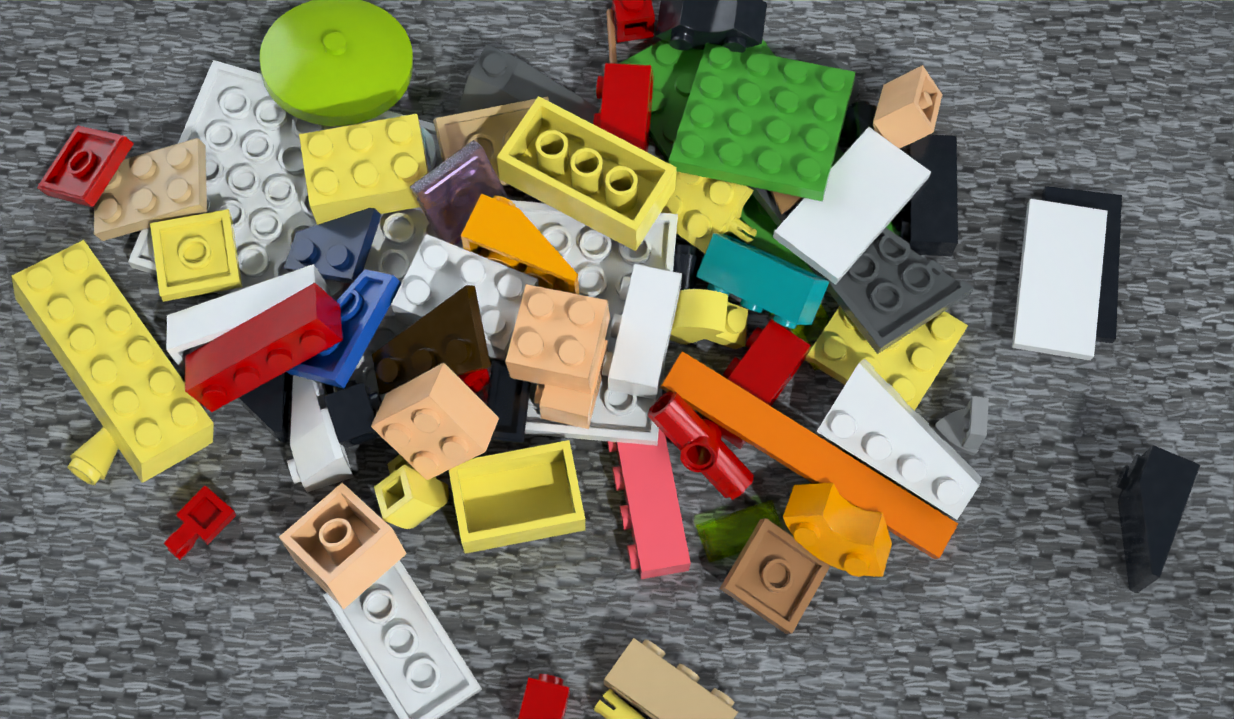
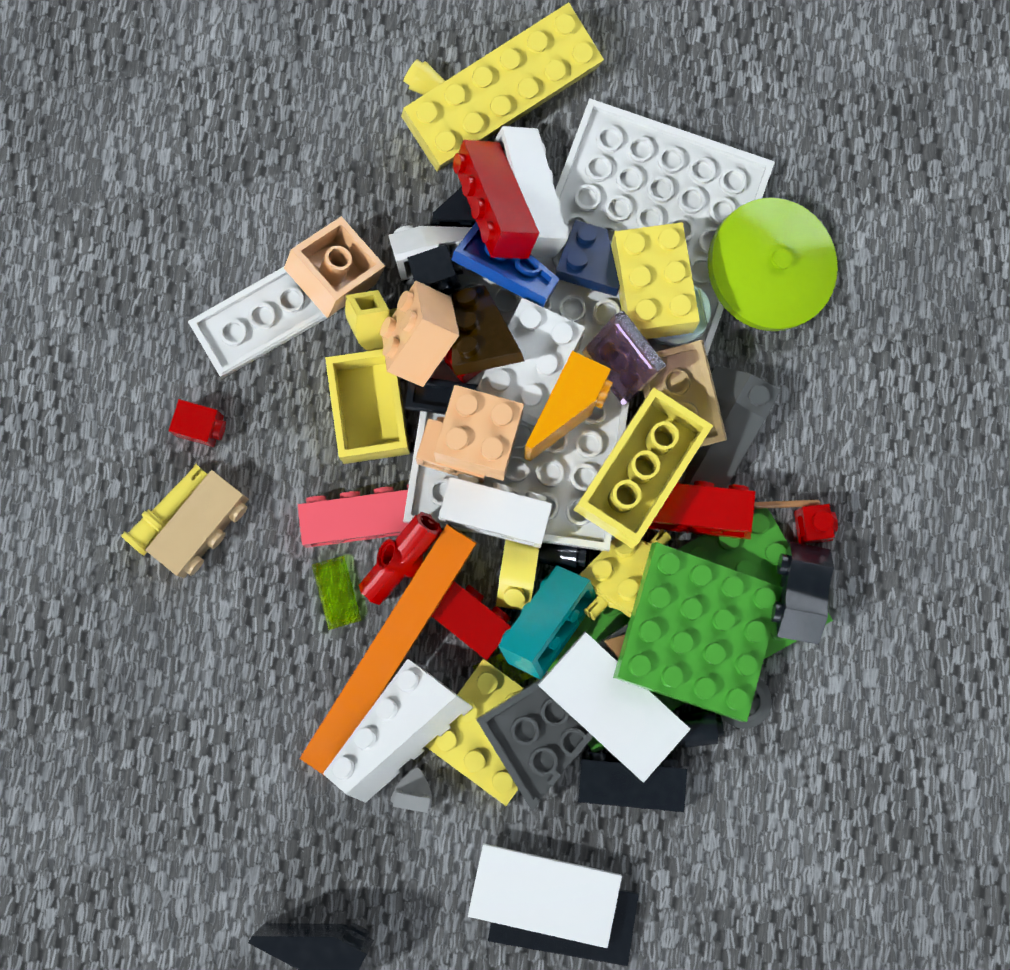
camera: 95 degrees right, 10 degrees up
(85, 165) = (676, 61): red tile -> none
(153, 189) = (652, 113): tan plate -> none
(195, 255) = (589, 149): light yellow plate -> none
(201, 518) = (369, 163): red plate -> none
(775, 576) = (290, 616): medium nougat plate -> none
(838, 530) = (322, 670): light orange brick -> none
(908, 108) = (710, 768): light nougat brick -> none

